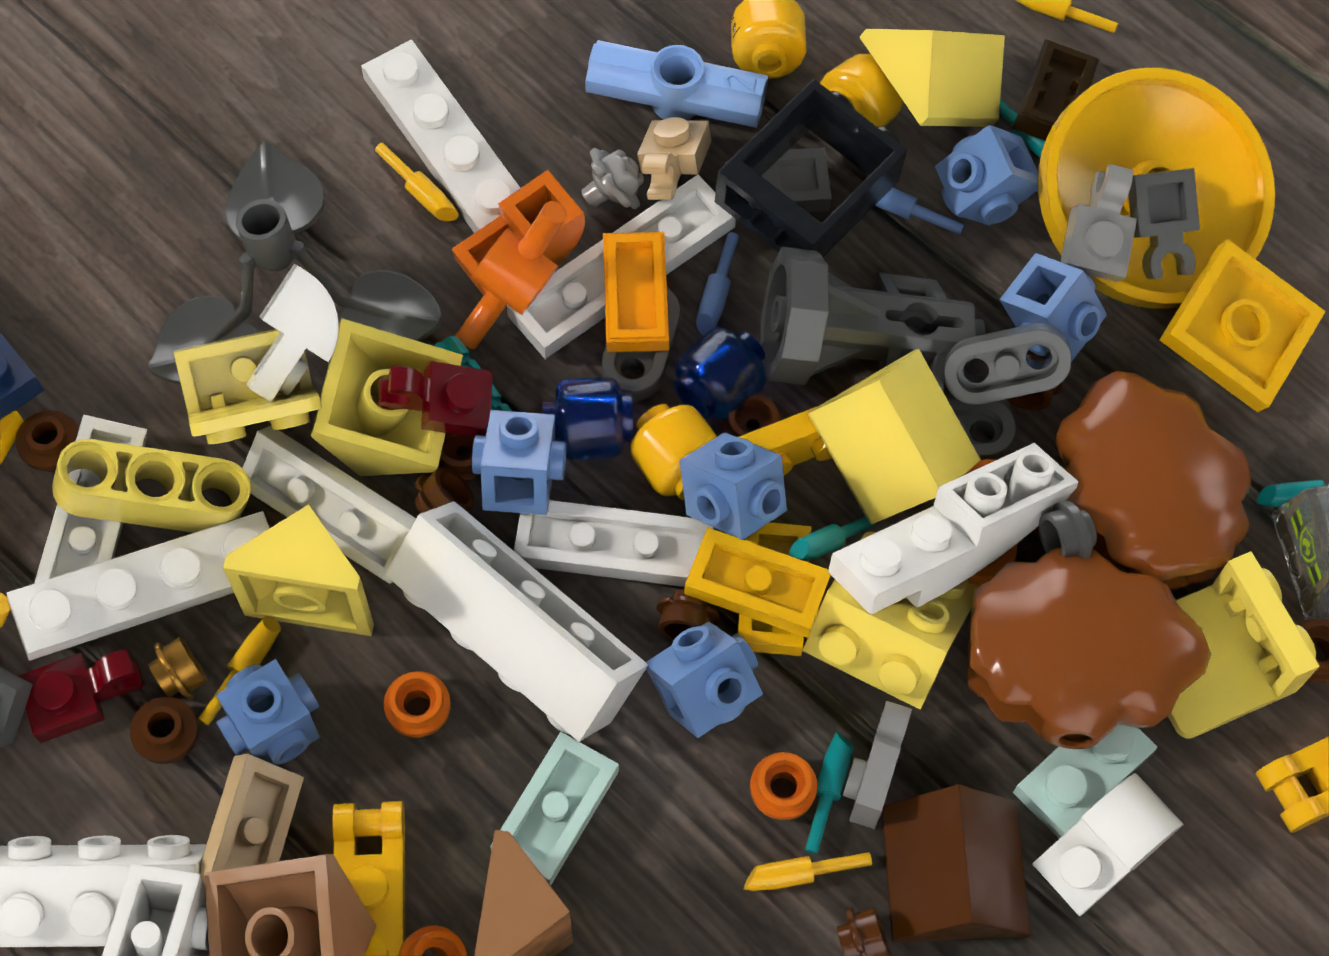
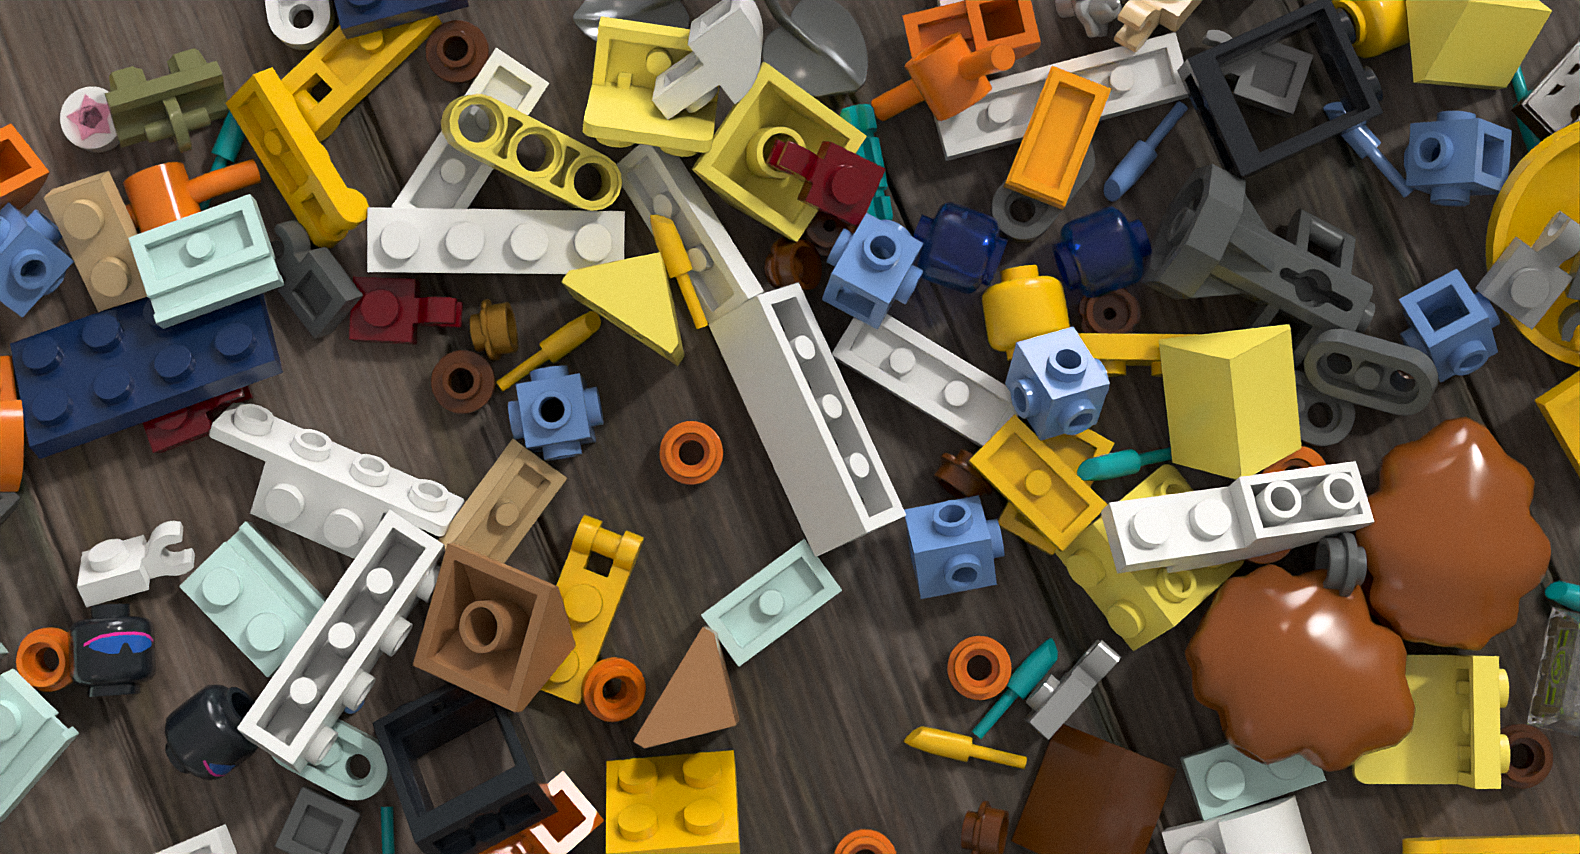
camera: 30 degrees right, 20 degrees up
(339, 535) = (677, 263): none -> yellow piece

